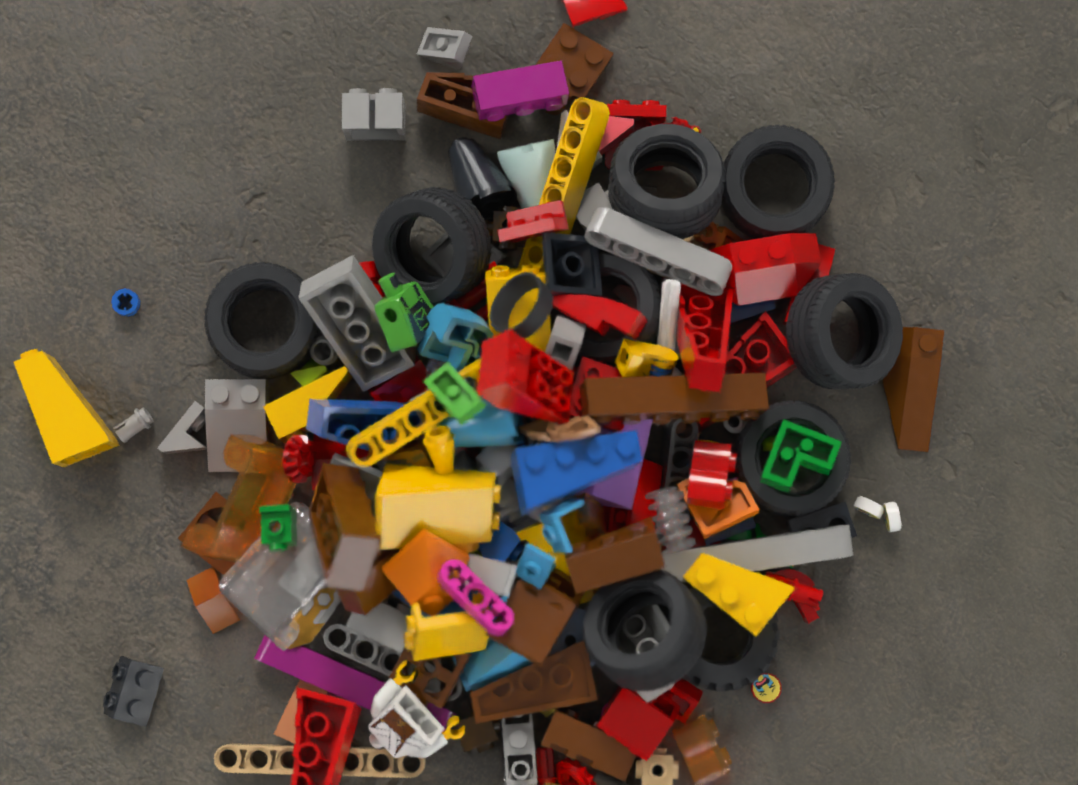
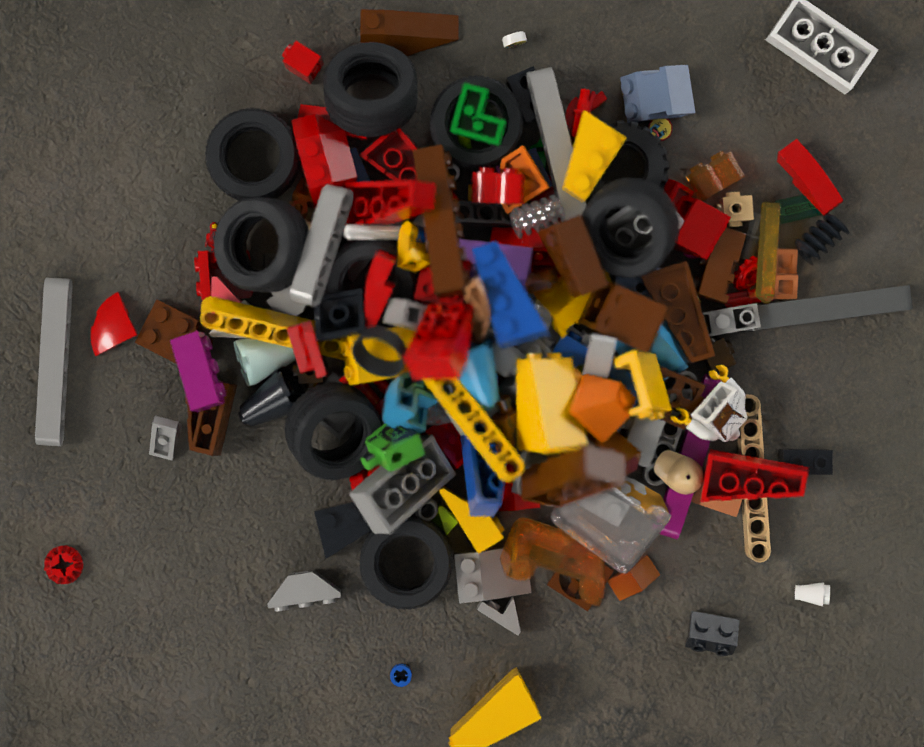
camera: 95 degrees left, 5 degrees up
(134, 424) = (500, 658): light grey pin -> none
(243, 195) = (304, 589): none -> light grey slope
(287, 535) = (567, 524): green brick -> none
(298, 459) = (517, 520): red gear -> none
(314, 243) = (340, 526): none -> black wedge
(343, 660) = (674, 468): none -> tan cap
(373, 115) = (229, 490): light grey piece -> none
(440, 446) = (500, 405): yellow cone -> none
(454, 394) = (459, 397): bright green slope -> none
(498, 606) = (630, 364): dark pink beam -> none
(535, 566) = (589, 320): dark azure bracket -> none
(553, 529) = (557, 308): dark azure bracket -> none
(809, 688) = (658, 94): none -> sand blue piece
(869, 507) = (508, 58): white tile -> none
(886, 254) = (302, 61): none -> red brick

